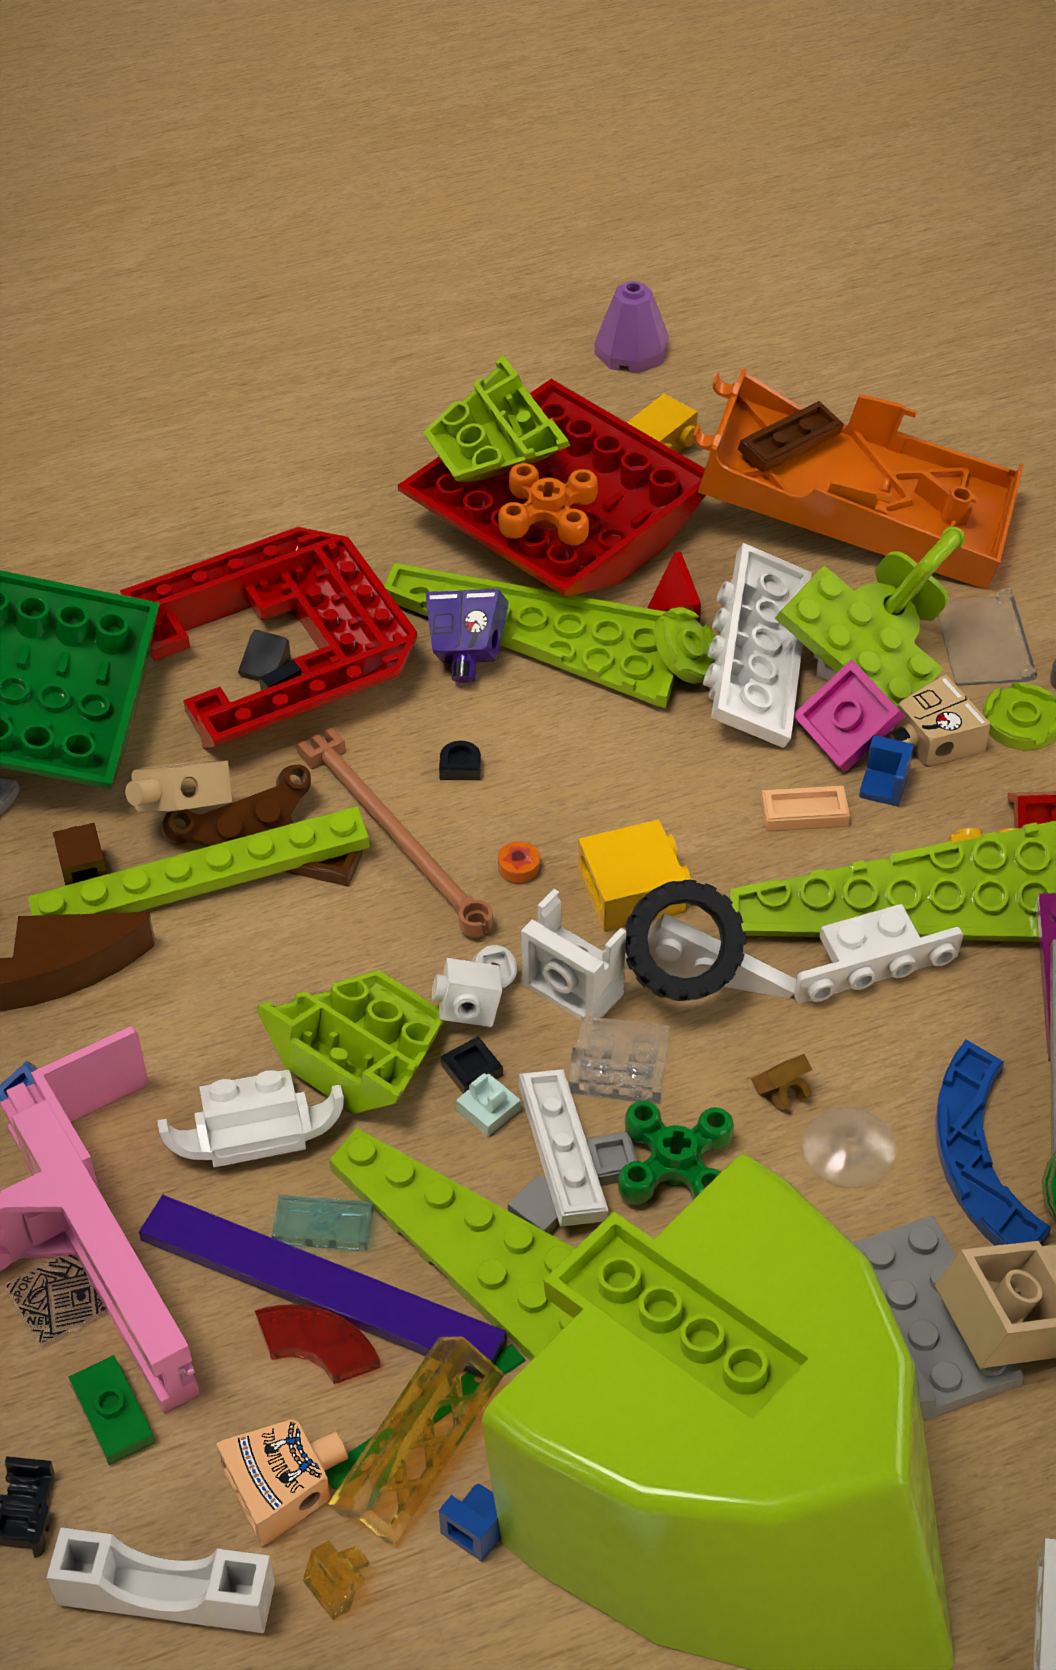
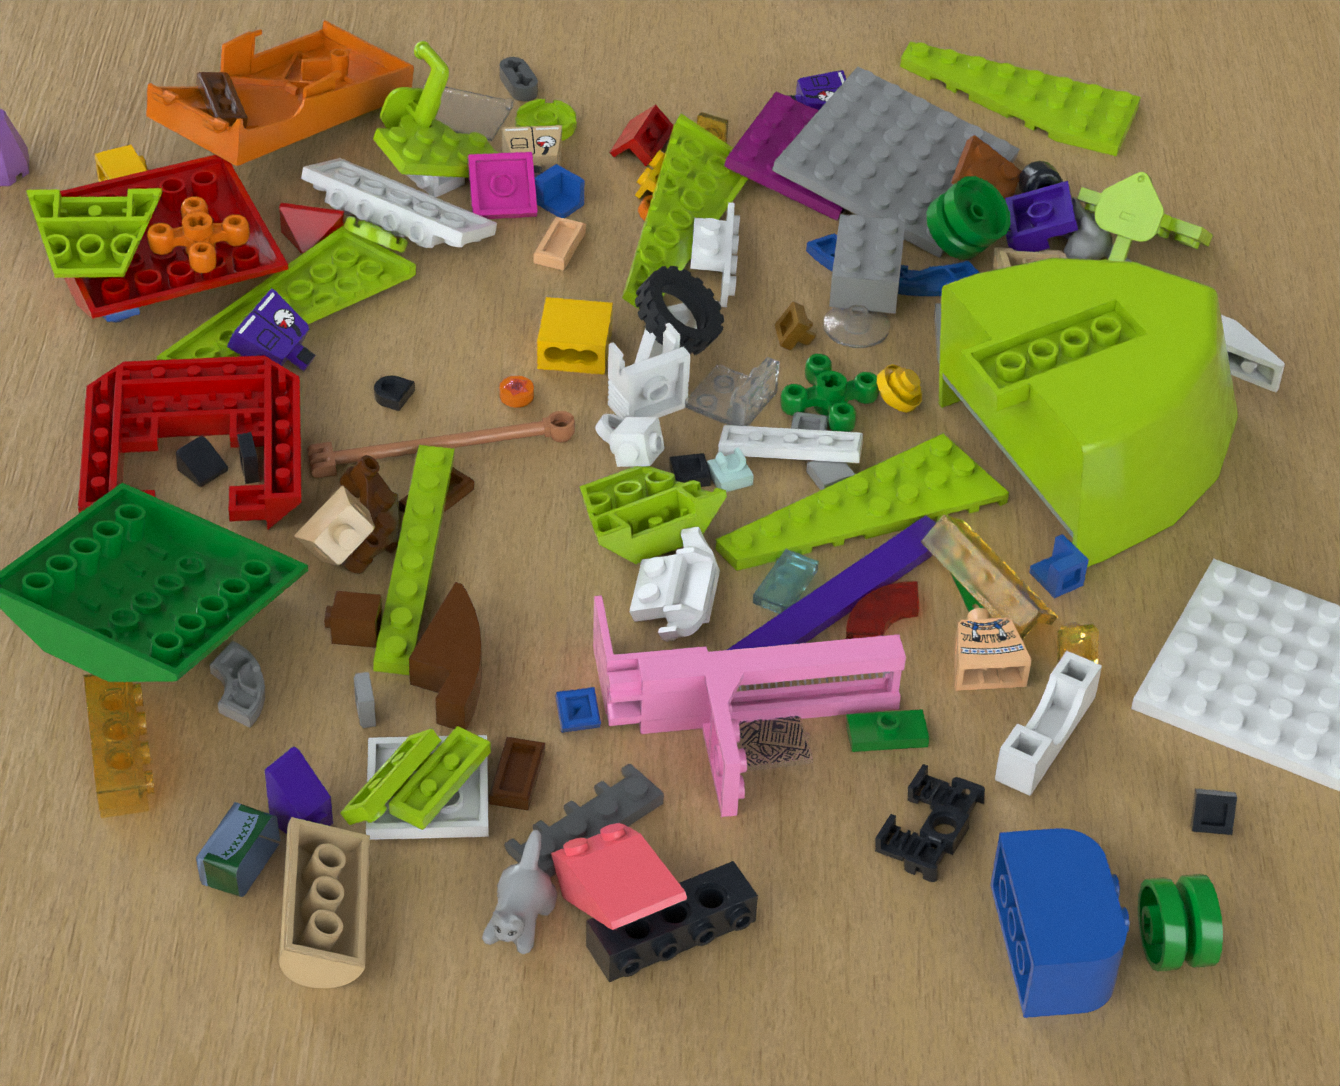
camera: 70 degrees left, 5 degrees down
(935, 1108) = (867, 263): none -> light grey brick

